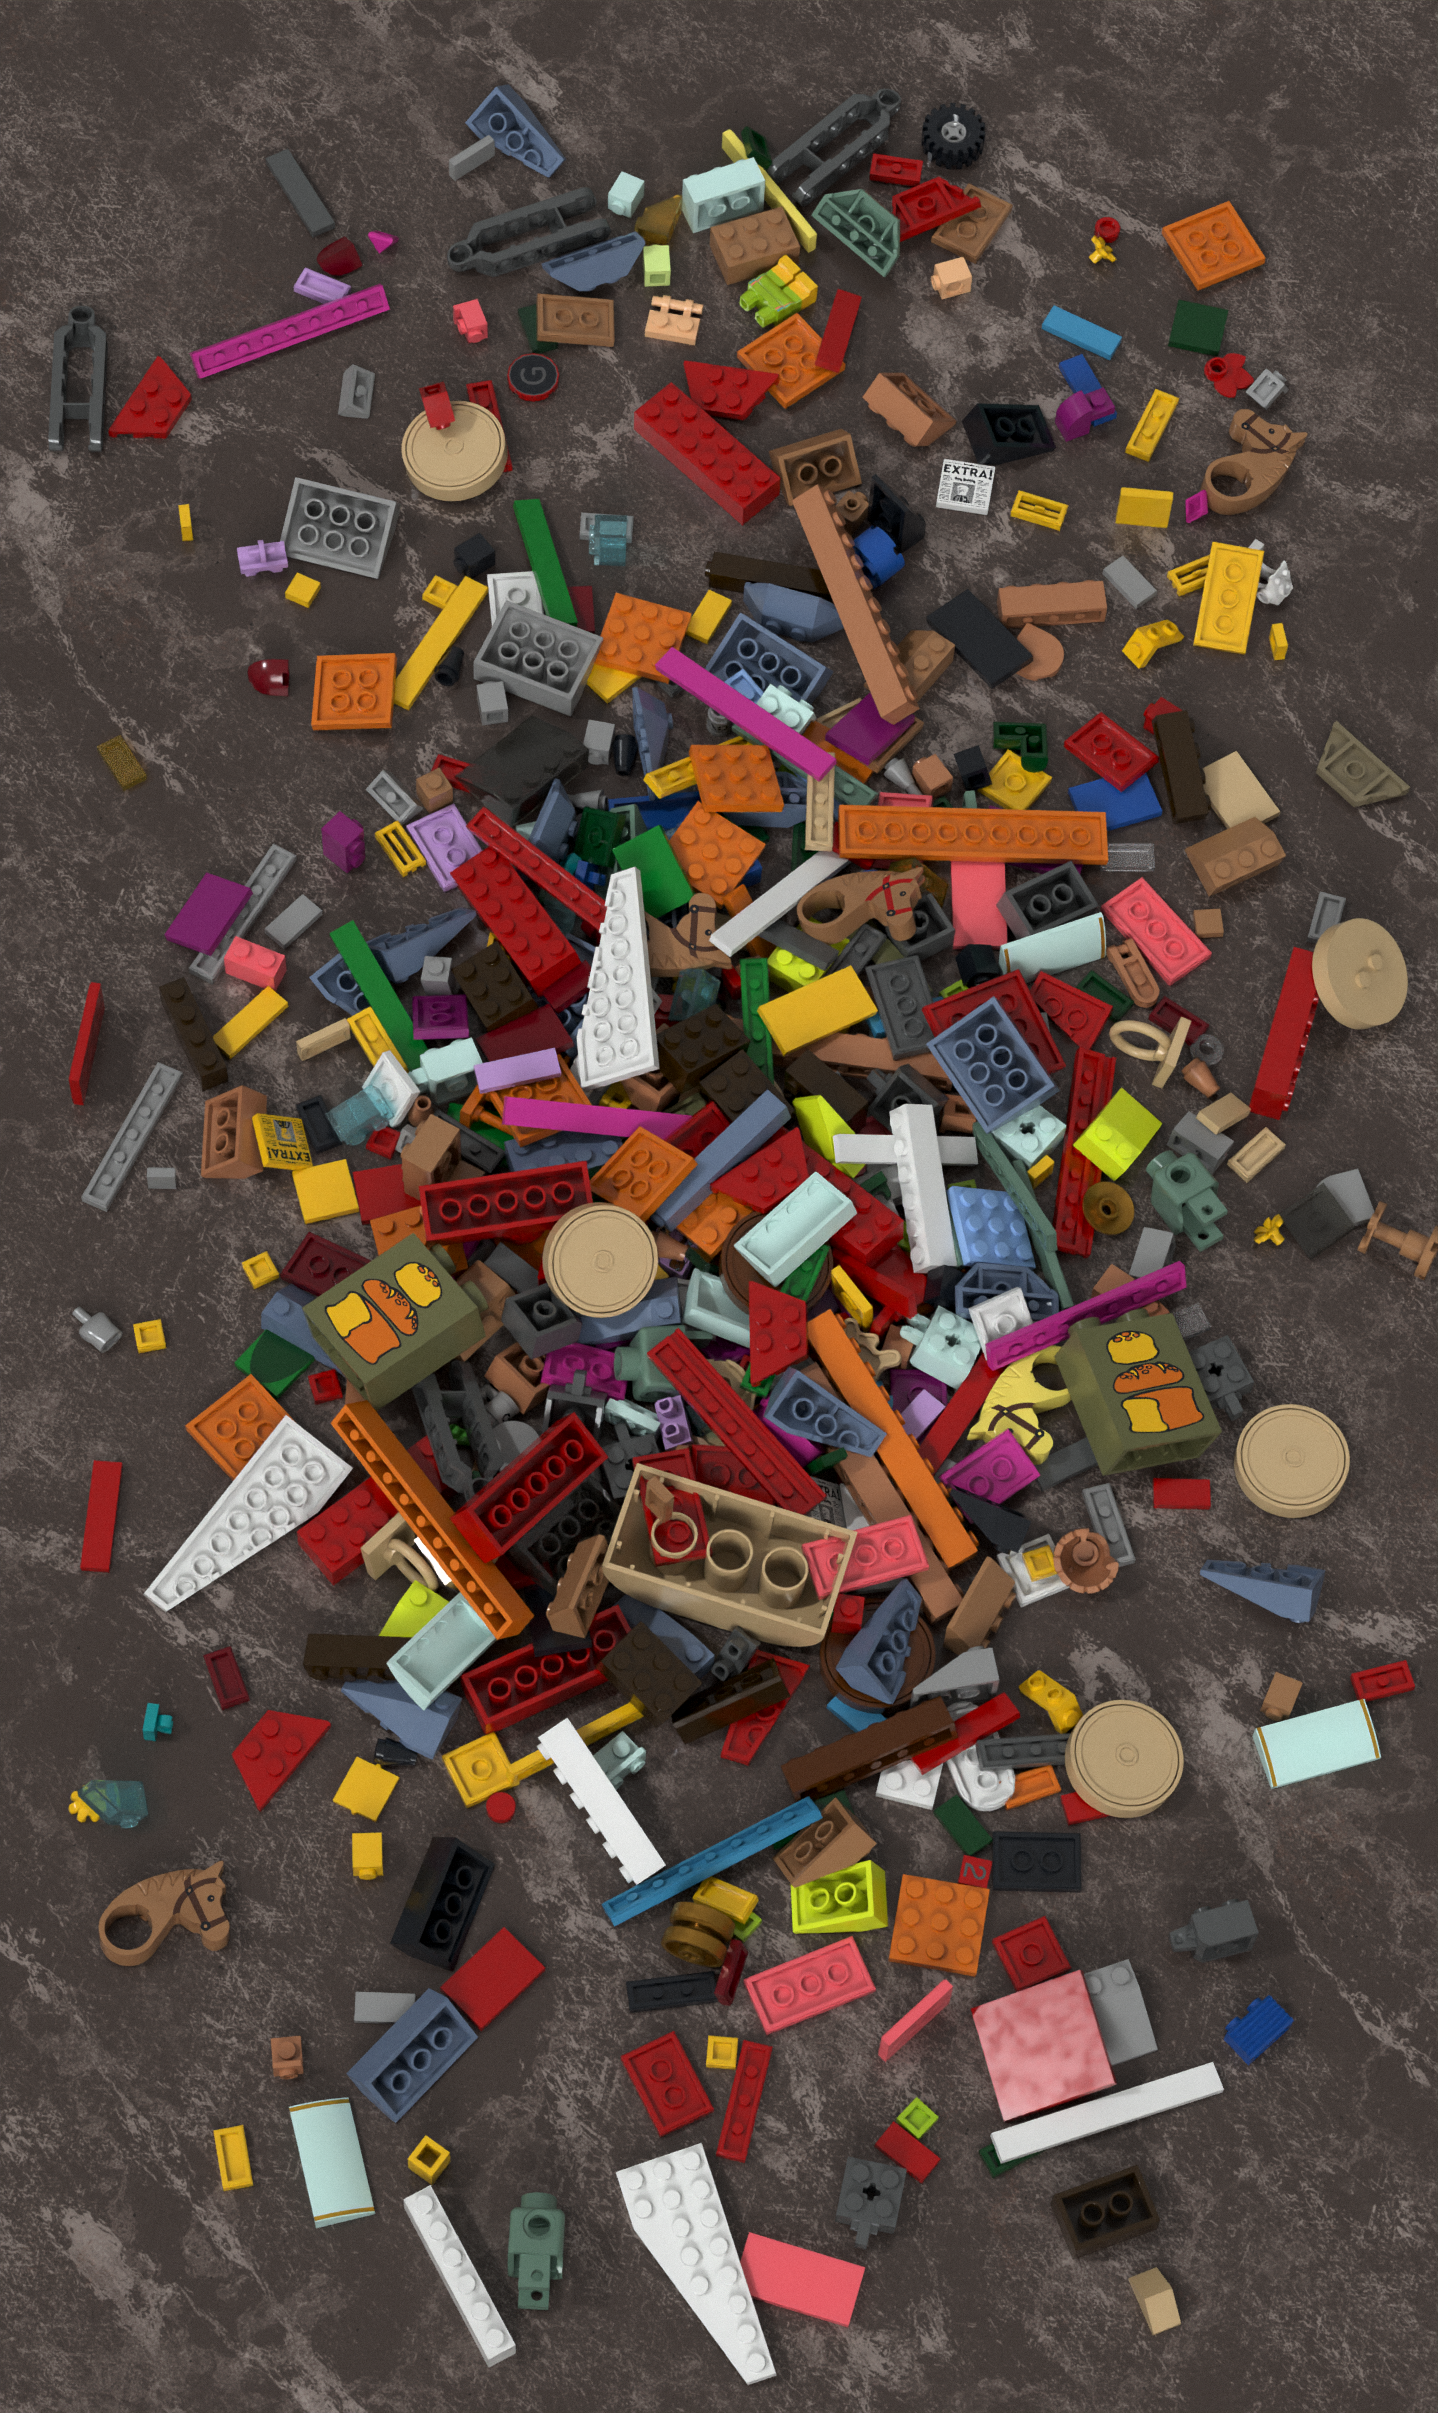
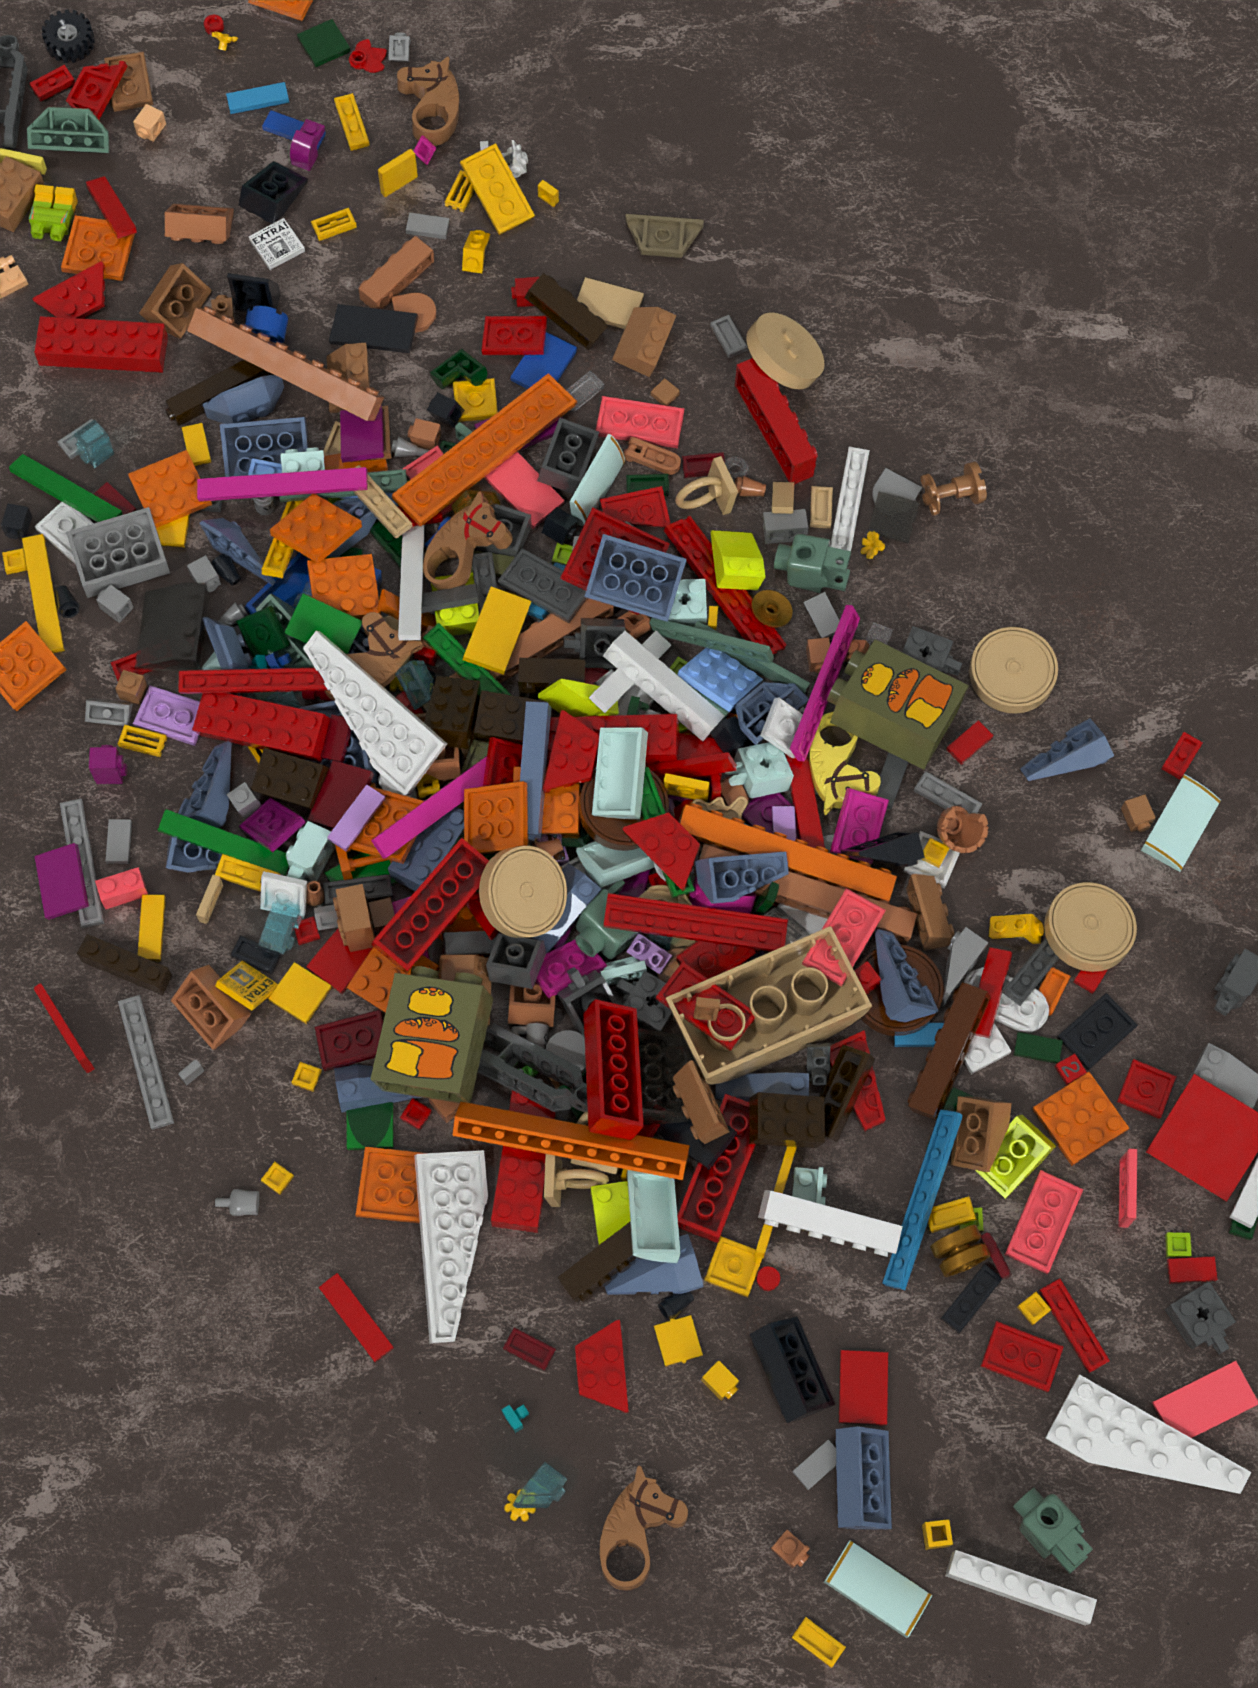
camera: 40 degrees left, 5 degrees up
(1287, 1174) = (849, 499): none -> white tile

